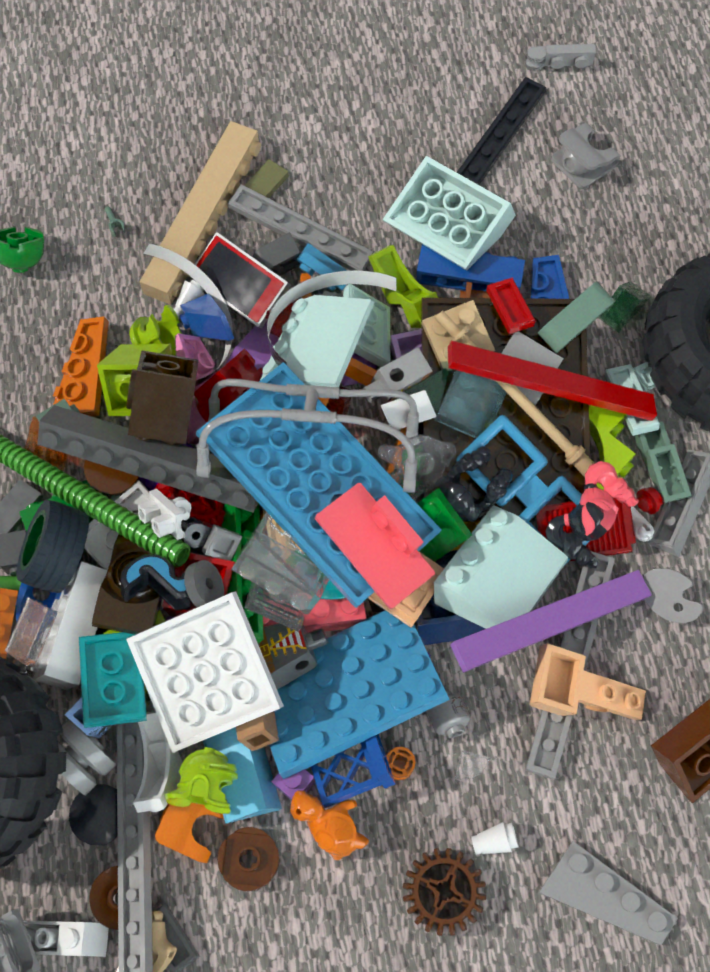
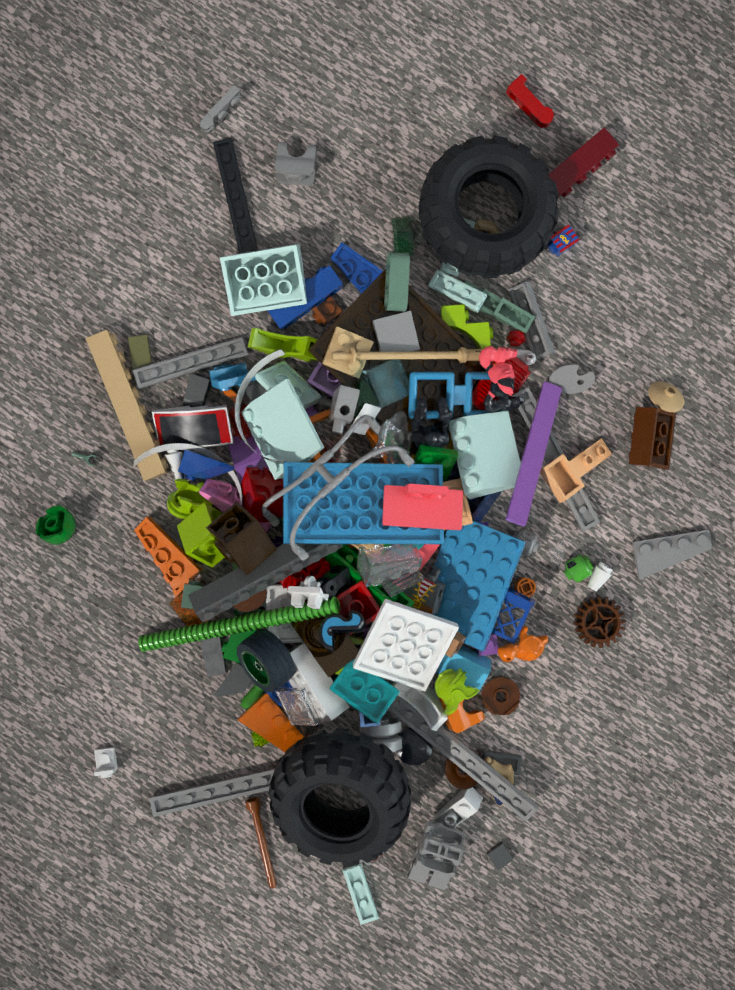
camera: 50 degrees left, 20 degrees up
(203, 583) = (363, 608): dark grey piece -> none
(221, 543) = (346, 577): light grey tile -> none
(480, 805) = (578, 568): none -> bright green head
(510, 305) = (358, 309): red tile -> none
(551, 380) = (418, 331): red tile -> none

